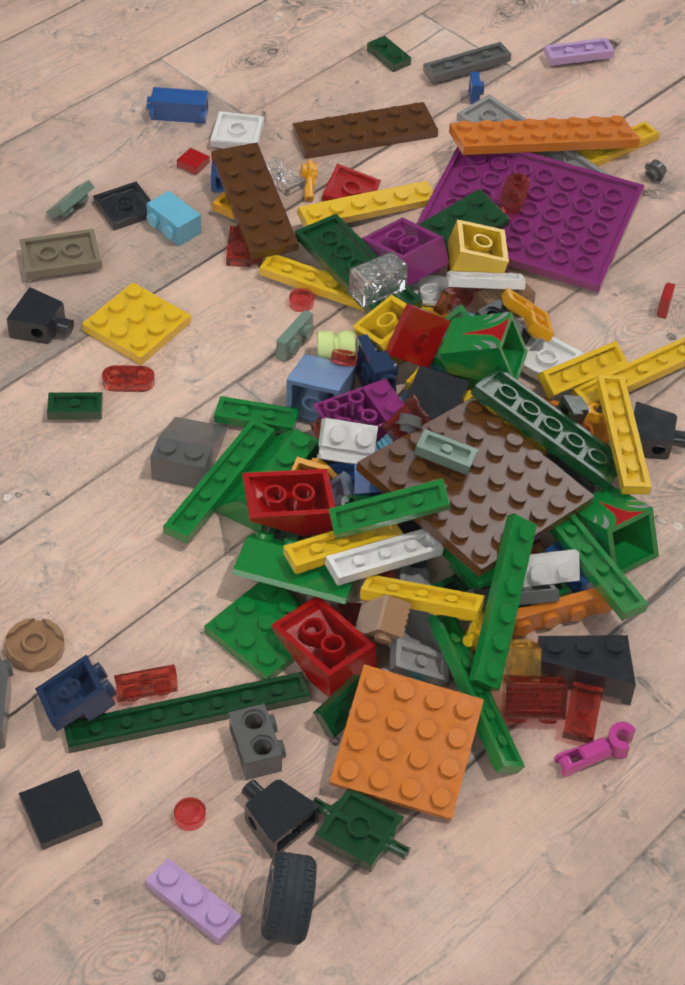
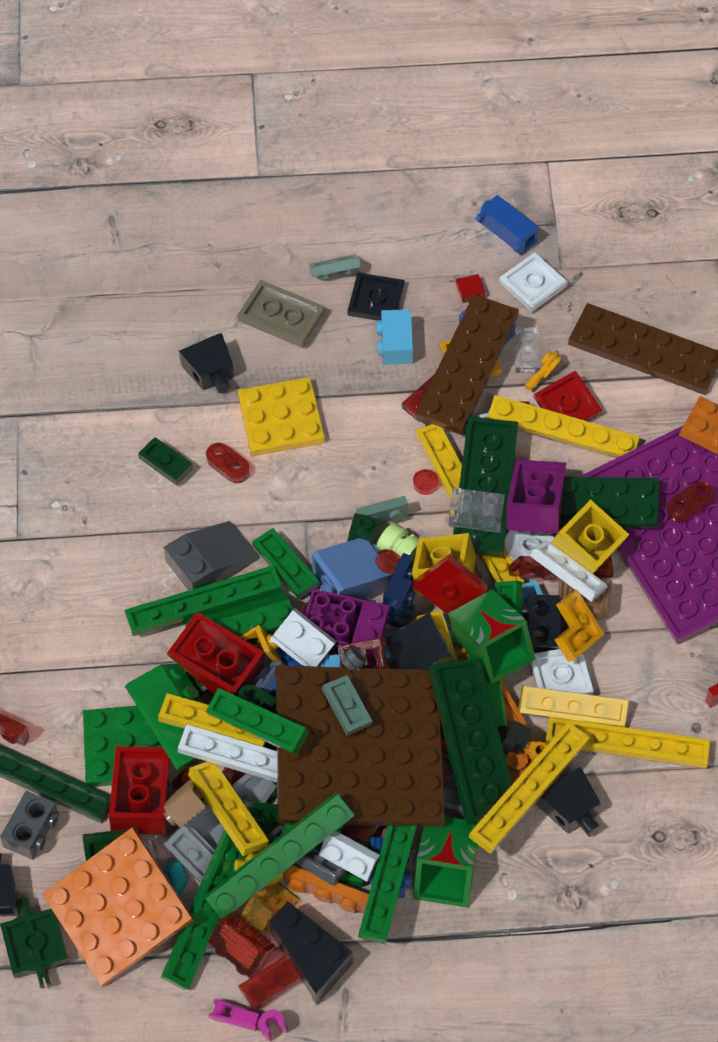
camera: 45 degrees right, 10 degrees up
(292, 351) = (363, 527): none -> dark green bracket

